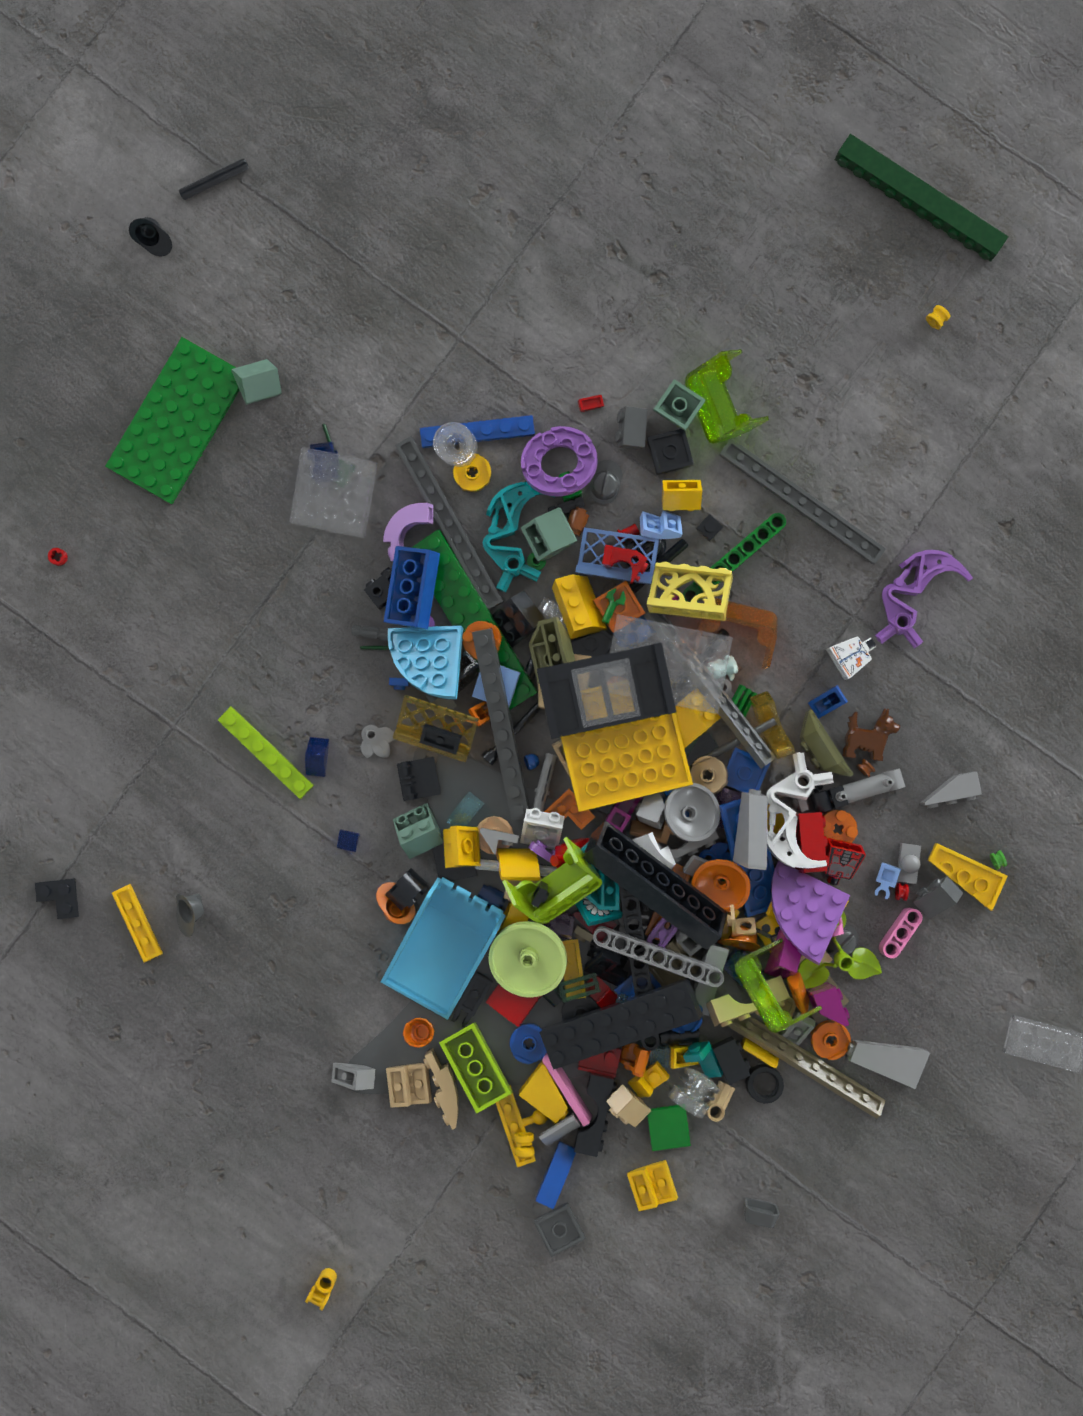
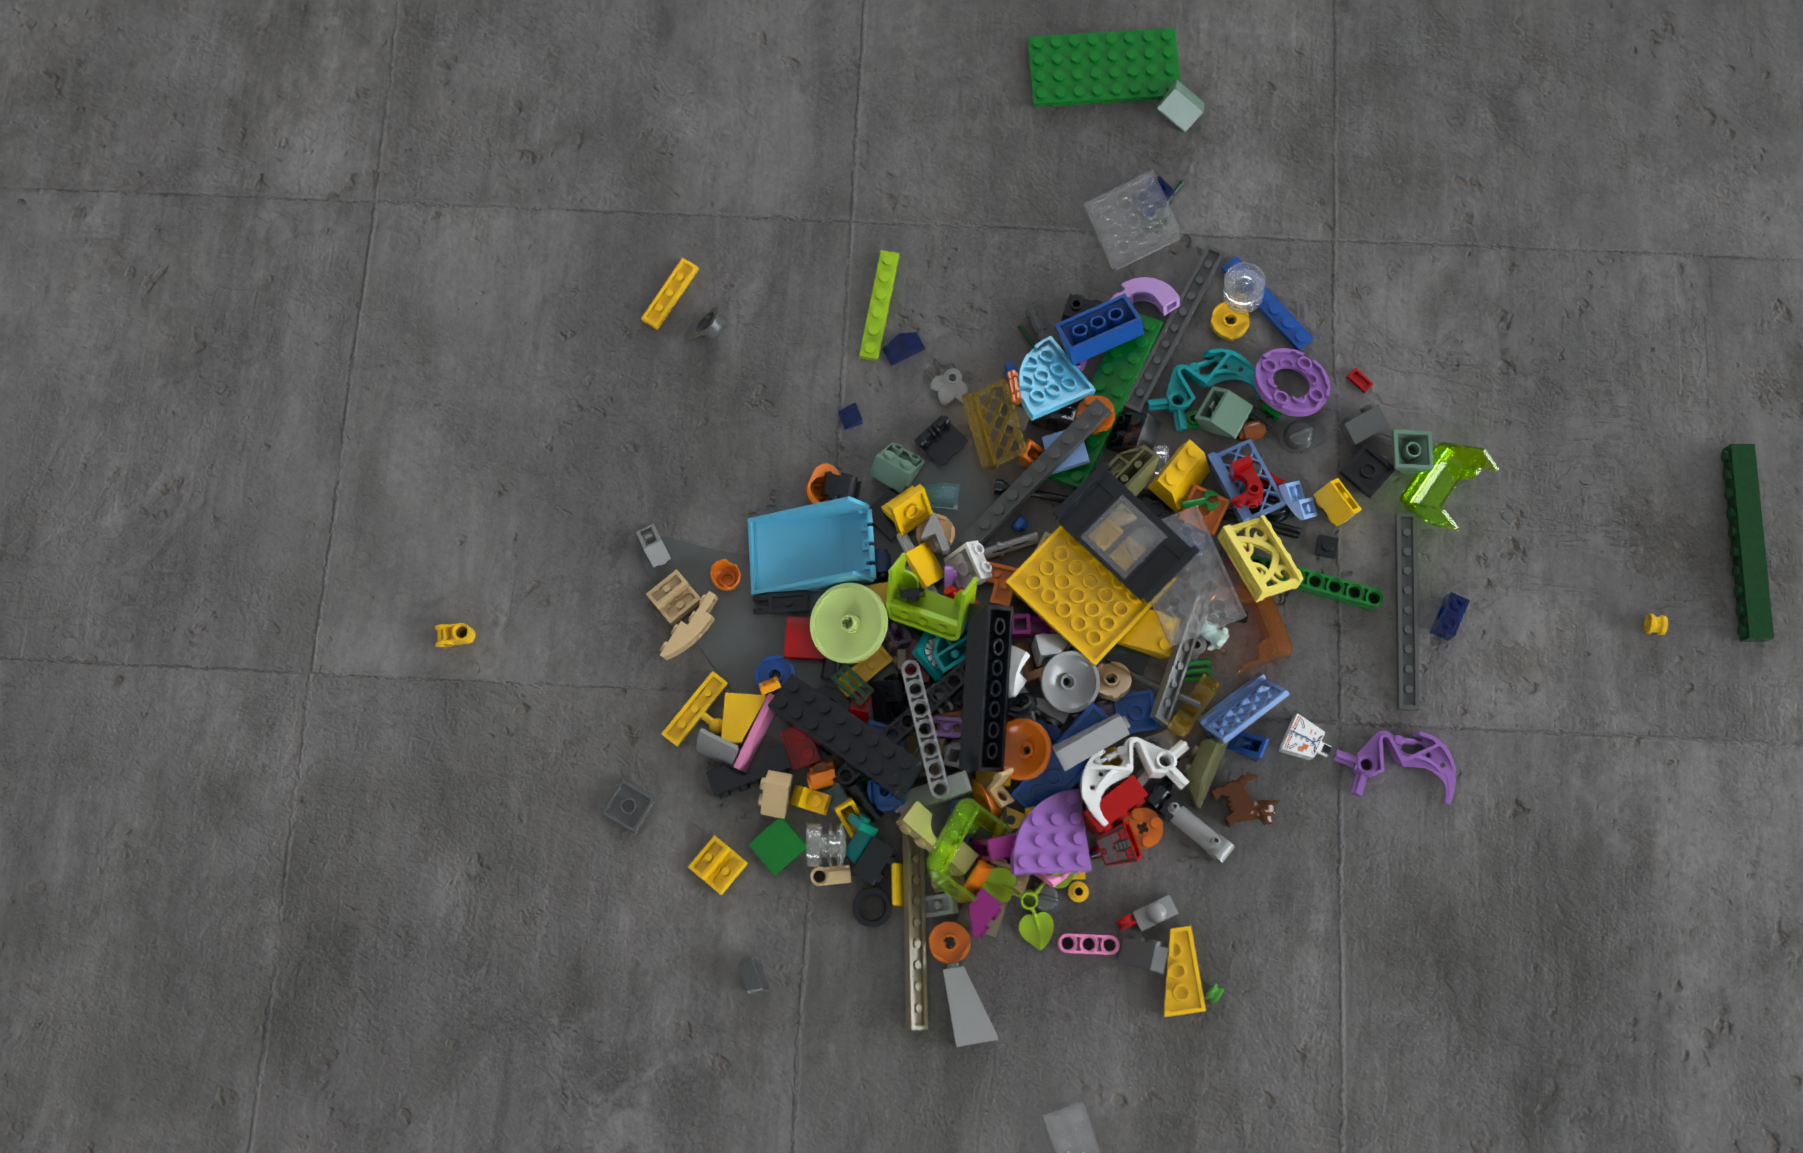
camera: 60 degrees right, 10 degrees down
(63, 559) = (926, 42): red bush -> none
(63, 892) = (657, 220): black plate -> none
(406, 686) = (1014, 387): none -> orange axle
(440, 739) = (988, 432): black plate -> none
(475, 1067) = (726, 640): lime brick -> none
(524, 1144) = (690, 722): yellow wheel -> none
(537, 1056) = (769, 685): none -> light orange tile
(555, 1175) = (675, 772): blue slope -> none
(680, 868) = (1014, 705): none -> black gear
(790, 688) = (1232, 707): none -> medium blue fence
(829, 472) = (1449, 616): none -> clear blue brick
(848, 912) = (1071, 891): none -> yellow plate
(865, 768) = (1213, 817): dark orange bush -> none
(887, 876) = (1130, 900): light blue plate -> none
(956, 787) = (1254, 913): light grey slope -> none

